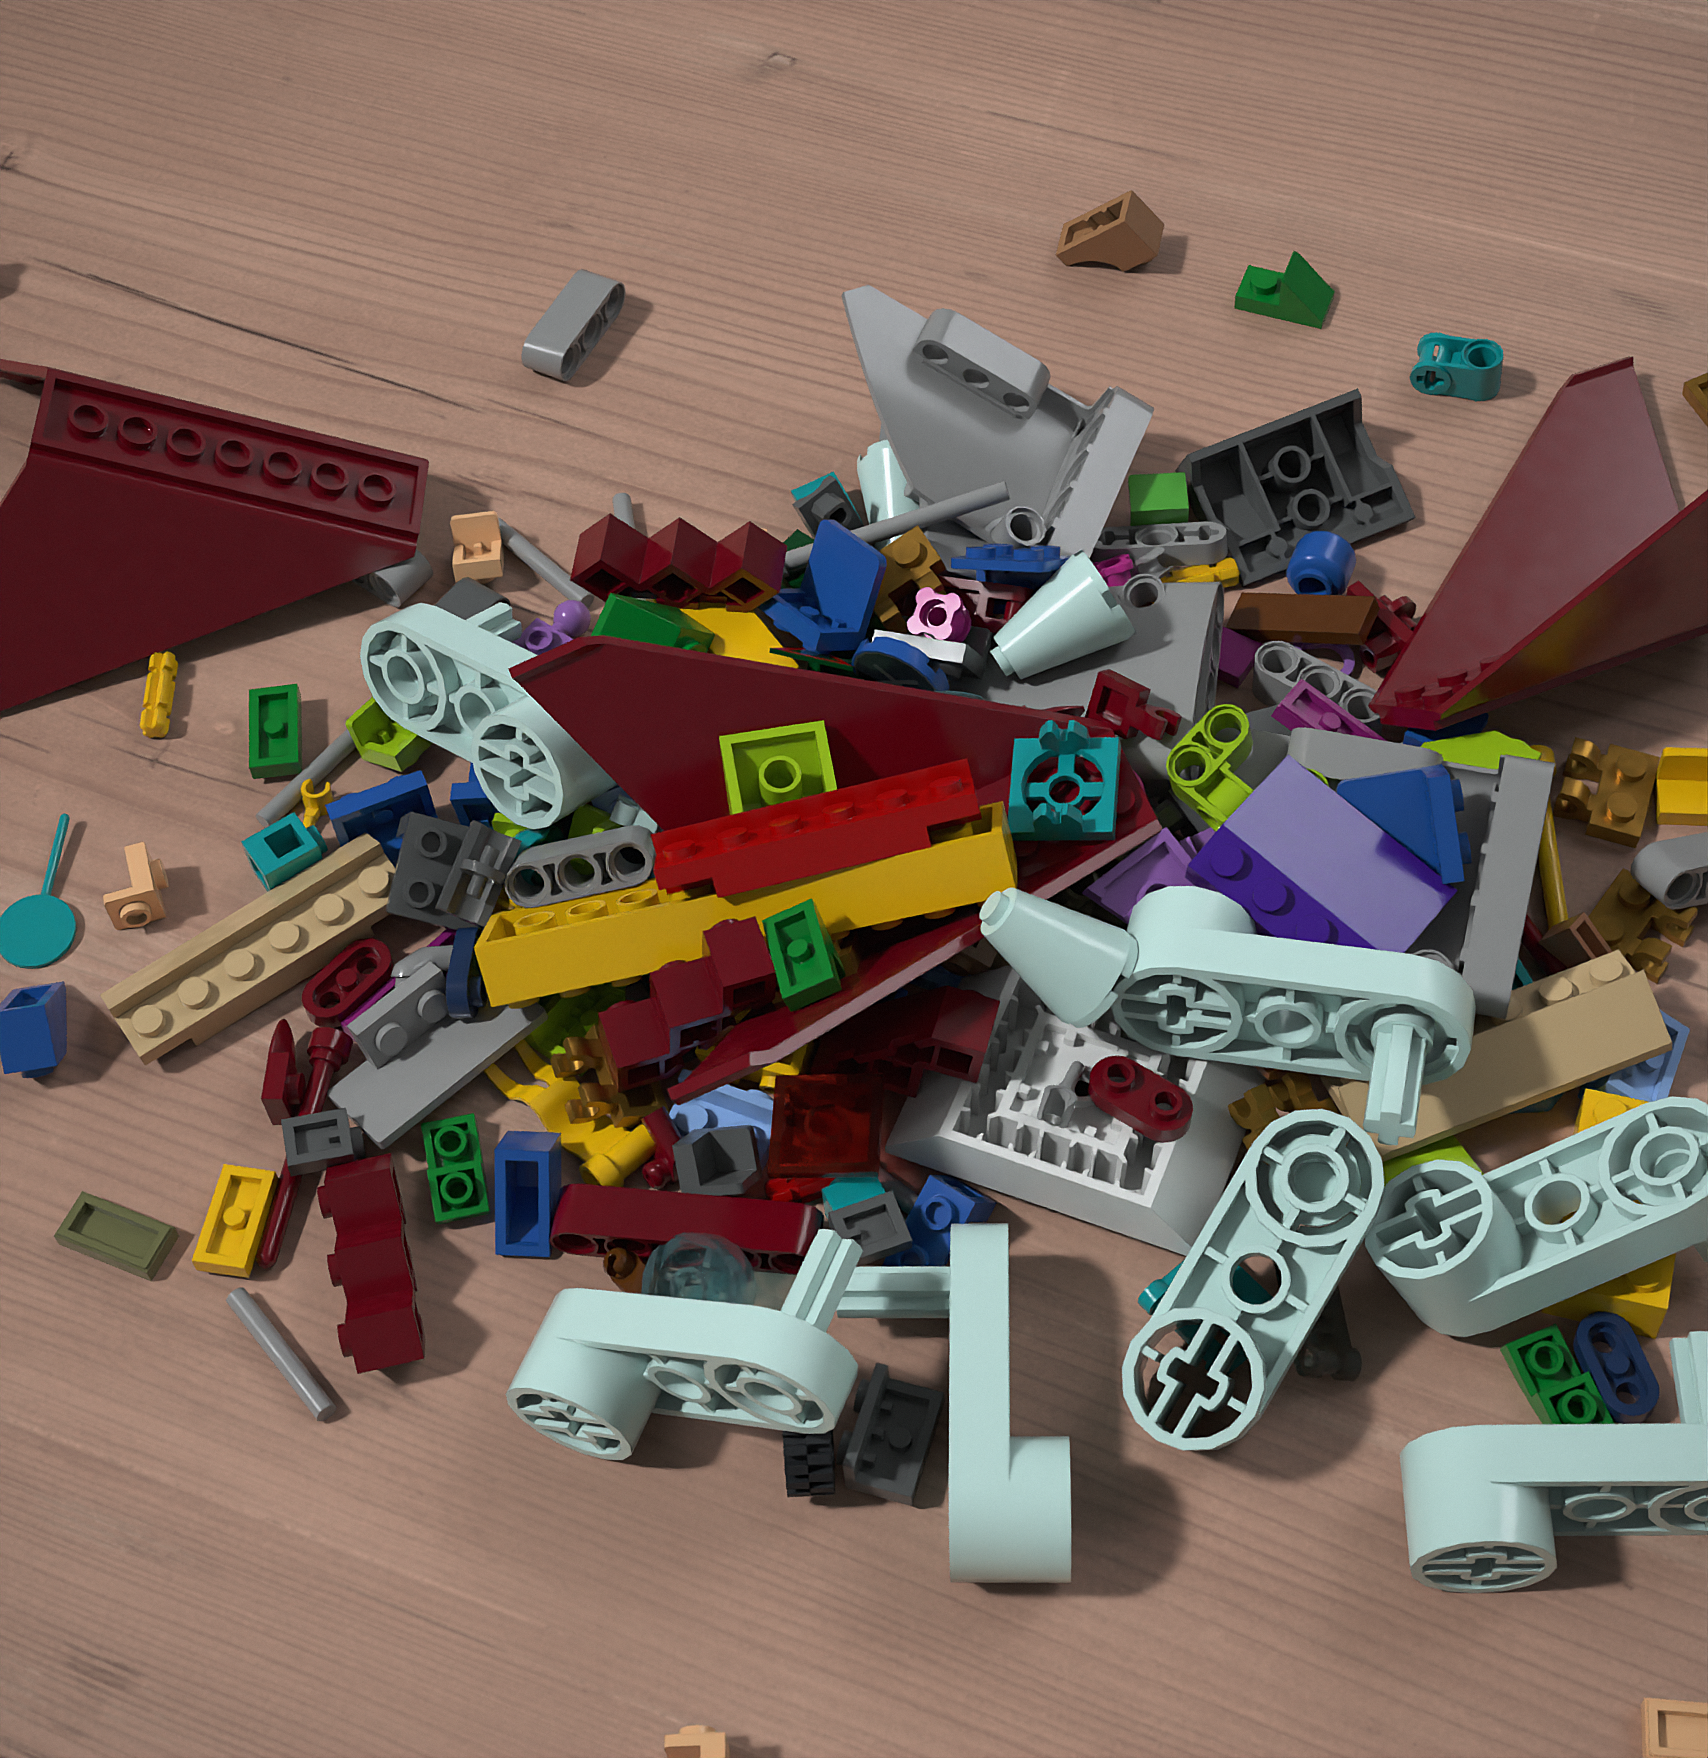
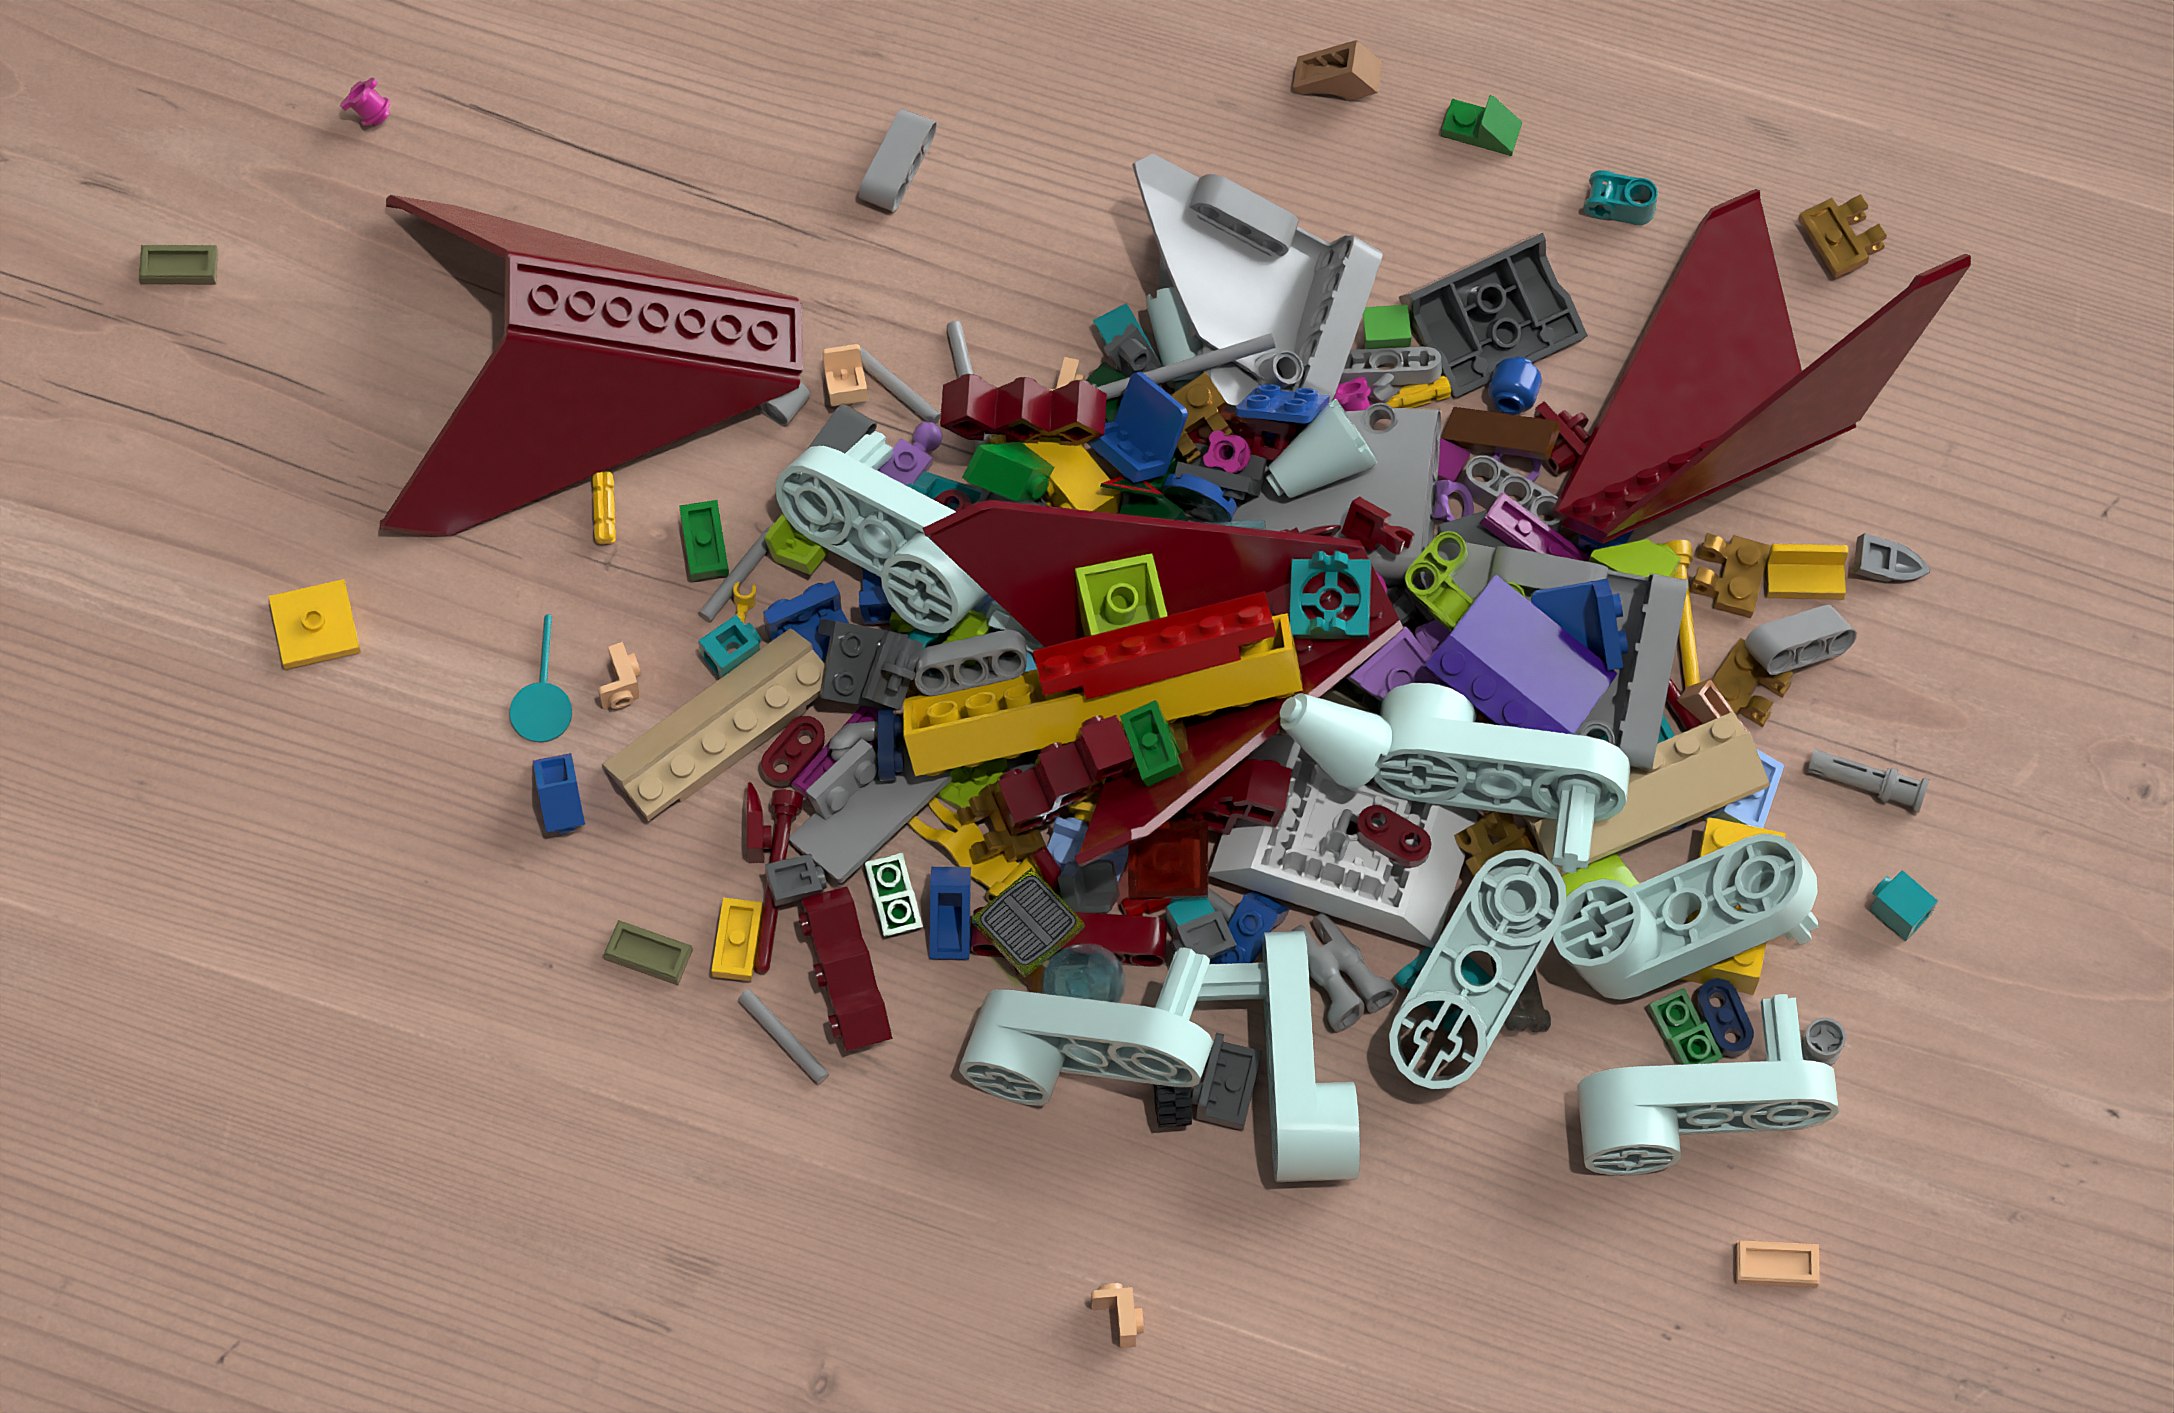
camera: 10 degrees left, 10 degrees up
(627, 1204) = (1028, 922): none -> tile
(1064, 1264) = (1325, 968): none -> light grey piece
(1228, 677) = (1443, 489): none -> medium lavender piece

